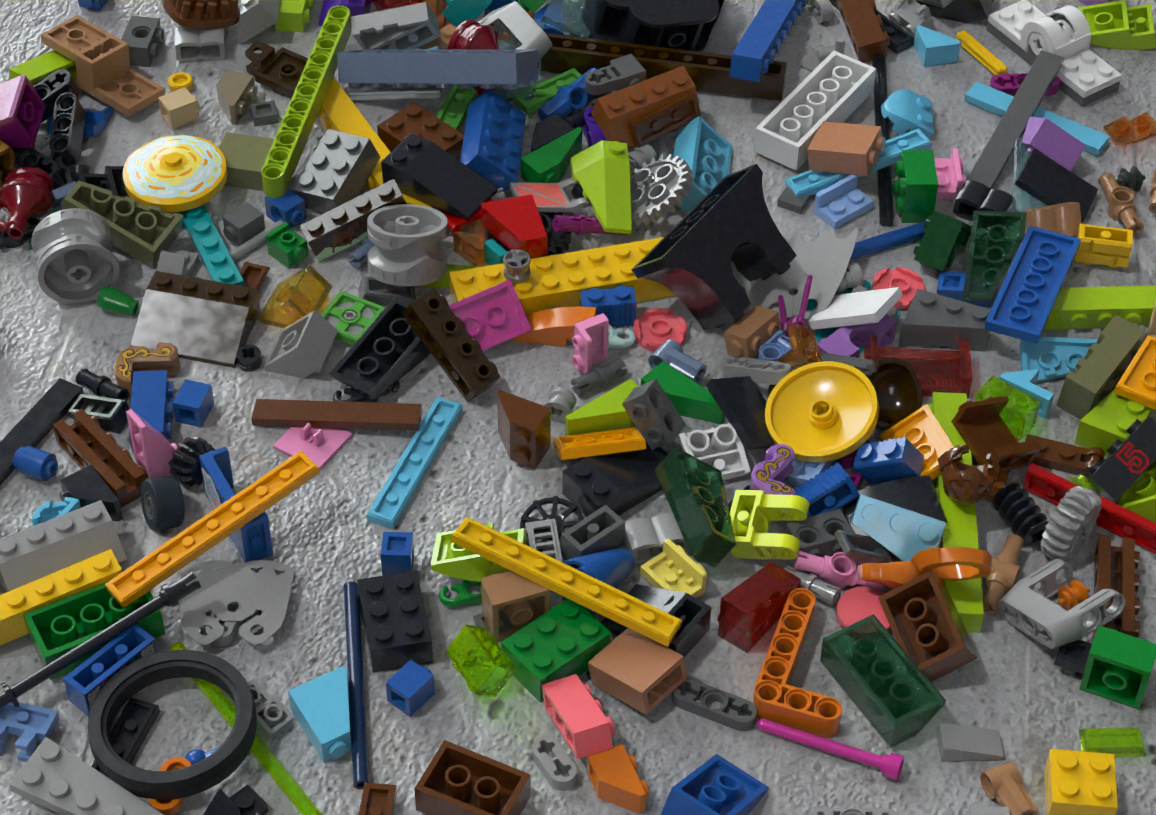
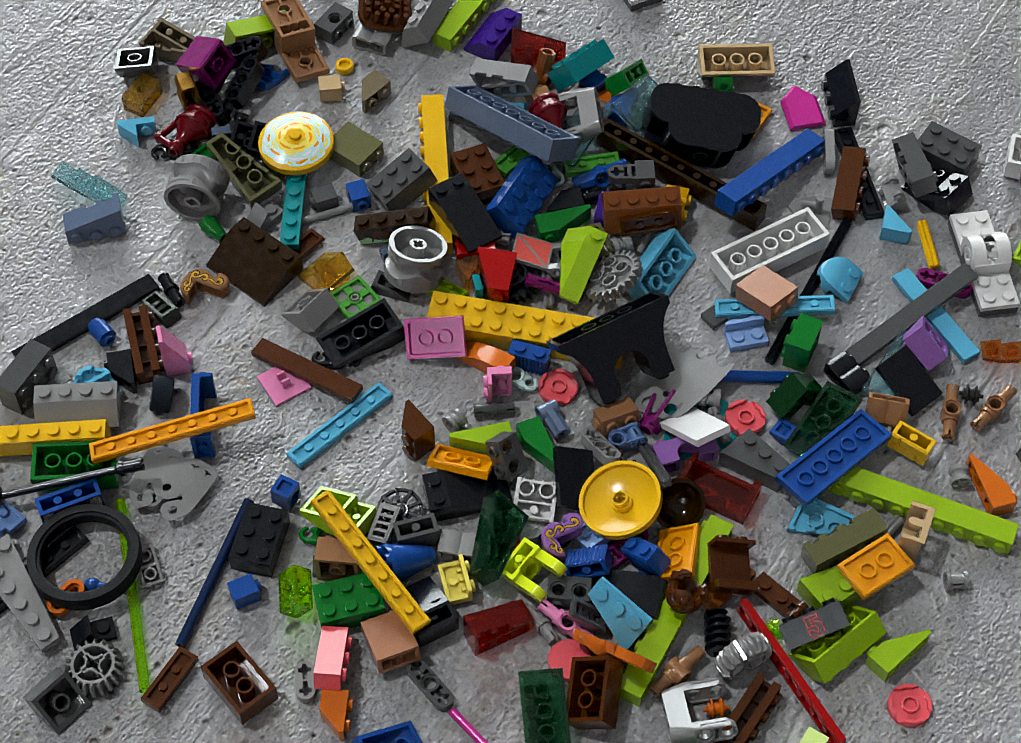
camera: 25 degrees right, 10 degrees up
(151, 399) = (193, 318): blue brick -> none
(186, 461) = (193, 365): black gear -> none
(193, 403) = (220, 325): blue brick -> none
(249, 364) = (279, 300): black bush -> none
(264, 113) = (387, 111): dark grey tile -> none
(274, 67) = (410, 74): dark brown plate -> none
(286, 245) = (343, 225): green brick -> none
(306, 103) = (410, 117): lime beam -> none
(324, 713) = (183, 586): medium azure slope -> none
(451, 344) = (401, 349): dark brown brick -> none
(517, 266) = (471, 305): flat silver wheel -> none
(772, 691) = (491, 678): orange beam -> none
(803, 347) = (639, 445): clear orange slope -> none
(949, 176) = (833, 339): bright pink bracket -> none
(1020, 411) = (765, 552): clear neon green brick -> none
(1027, 382) = (781, 536): medium azure slope -> none

